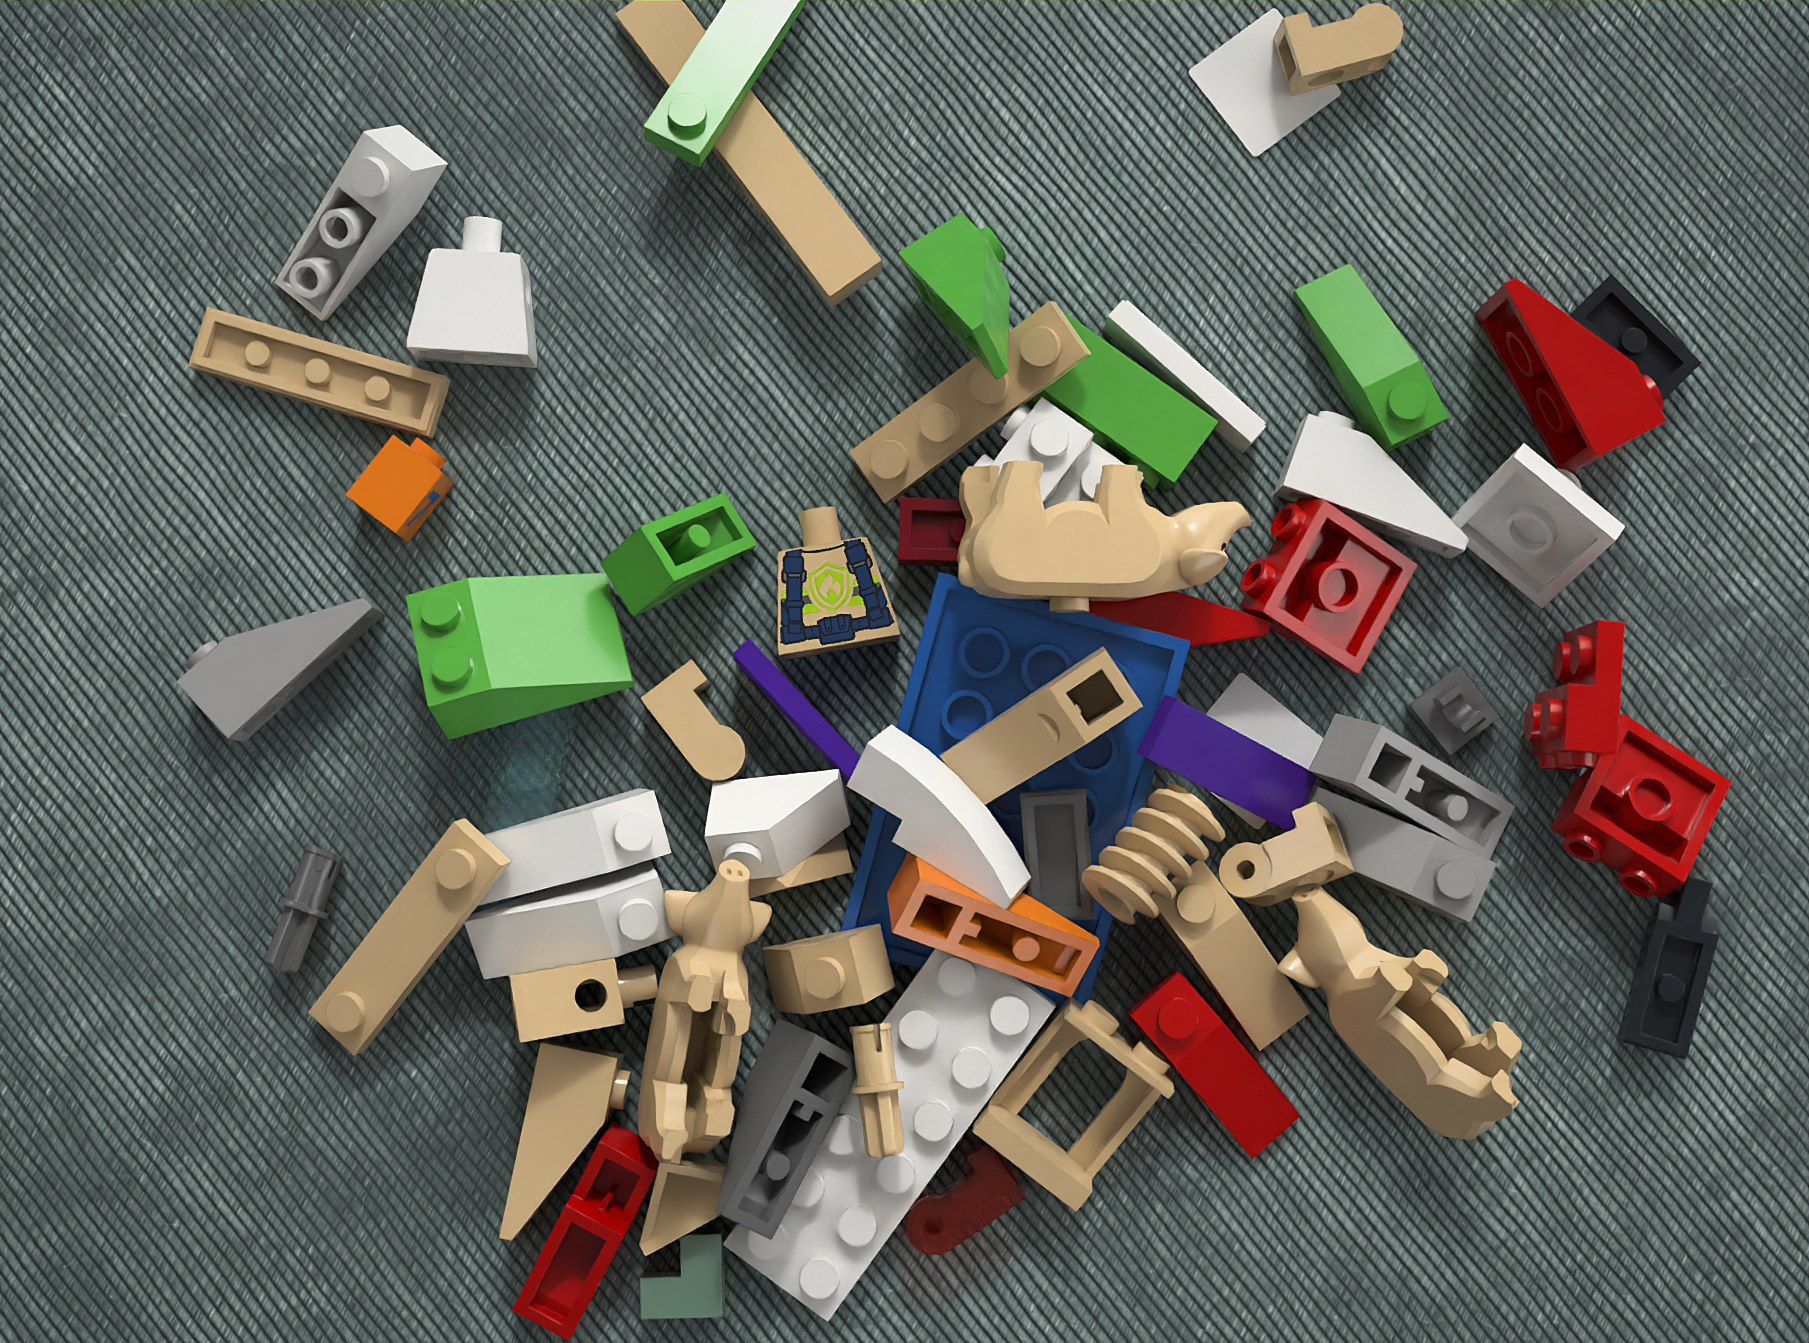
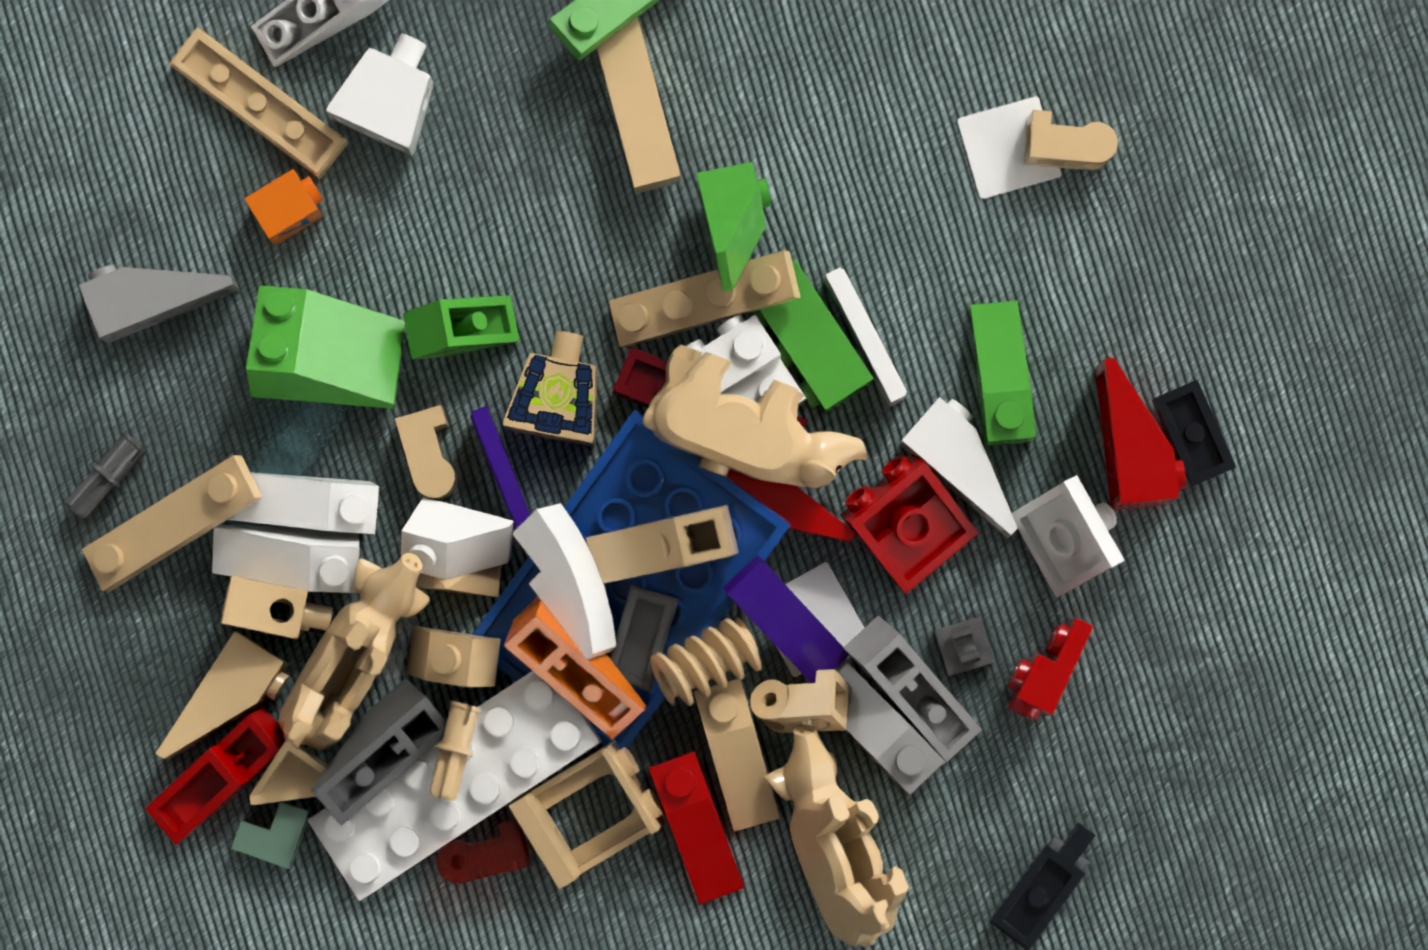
camera: 25 degrees right, 0 degrees up
(1642, 811) = (1067, 764): red plate -> none

